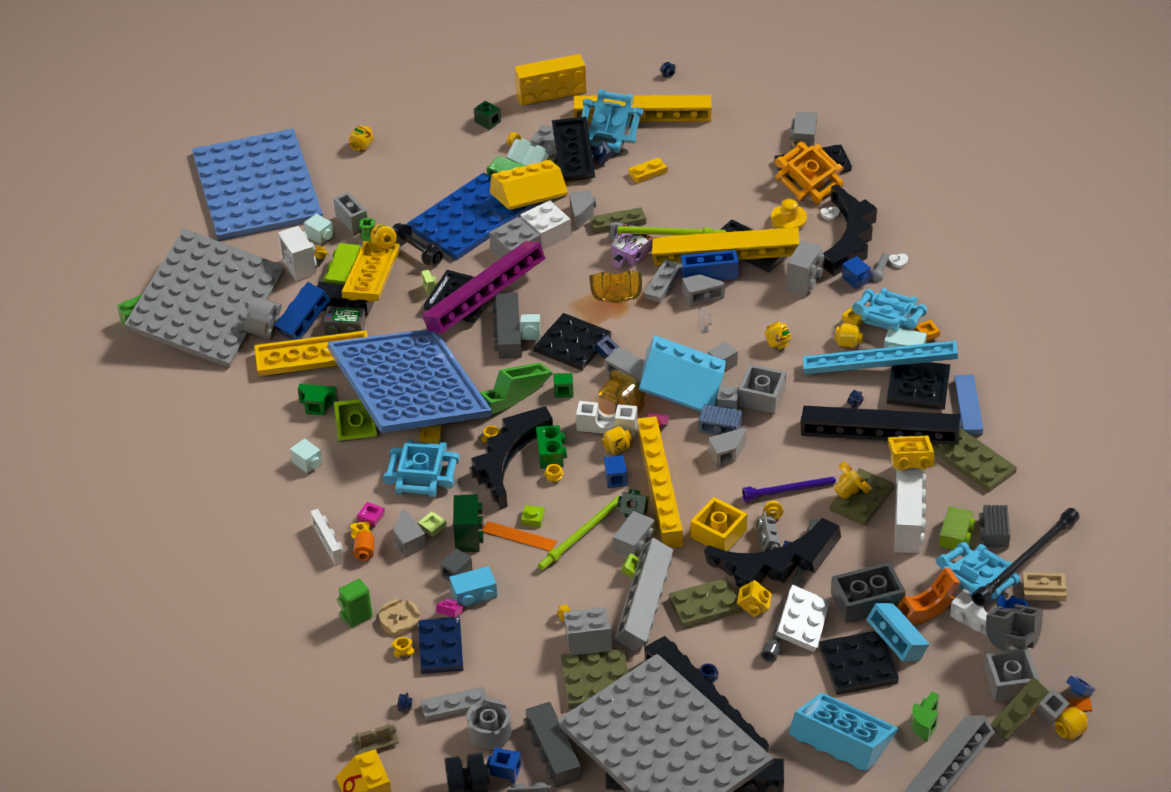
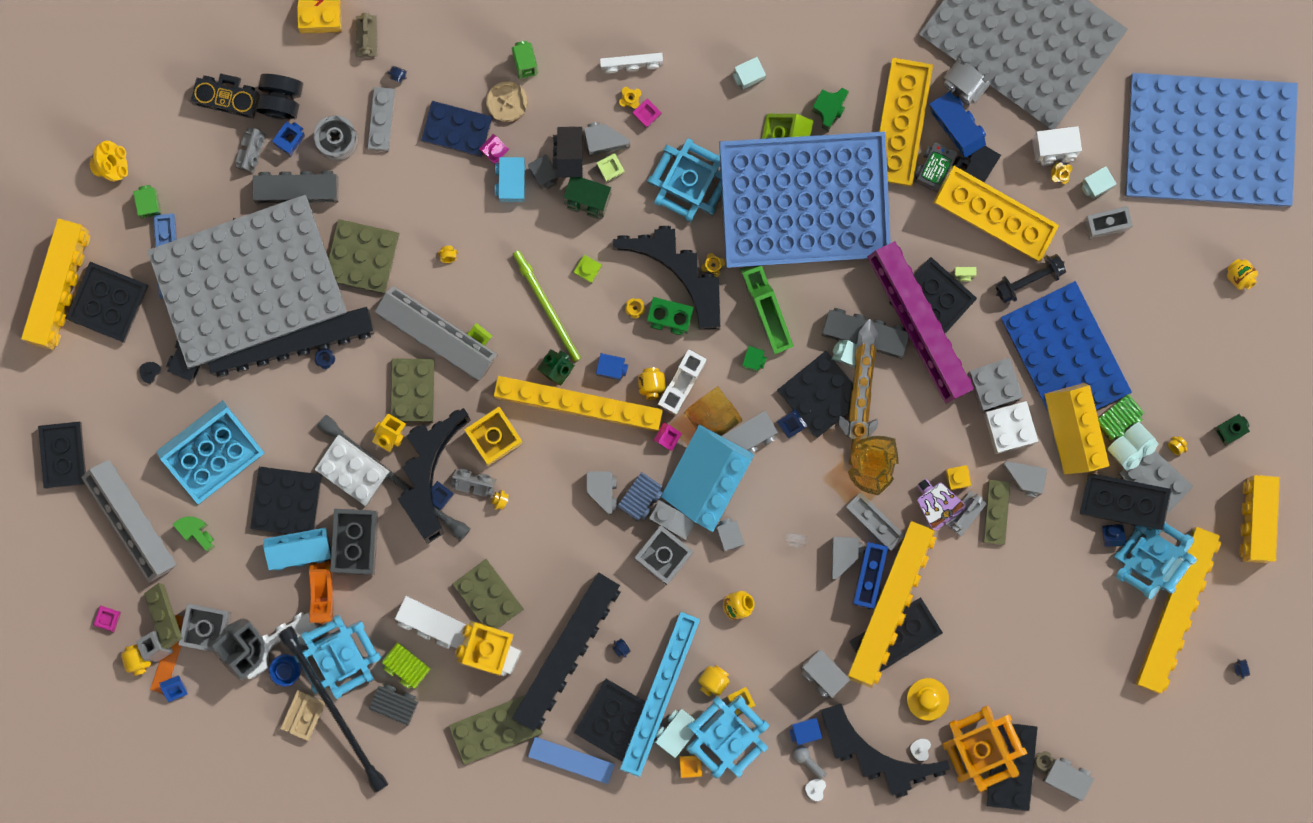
camera: 105 degrees right, 40 degrees up
(342, 263) = (1023, 189): lime brick -> none
(364, 546) = (605, 93): orange brick -> none
(366, 230) = (1080, 229): bright green bush -> none
(383, 236) = (1046, 242): yellow head -> none
(402, 647) = (462, 88): yellow plate -> none
(431, 540) = (568, 152): none -> black brick
(519, 536) = (569, 248): orange sticker -> none
(587, 631) = (407, 262): light grey brick -> none
(589, 307) = (858, 424): none -> sword
(601, 242) = (958, 478): none -> yellow brick
(634, 534) = (518, 353): light grey brick -> none
(647, 170) = (1070, 577): yellow plate -> none
(665, 231) = (923, 592): lime bar -> none
(750, 494) = (530, 489): dark purple piece -> none
(850, 482) = (490, 584): yellow plate -> none
(1047, 763) = (107, 618): none -> dark pink tile

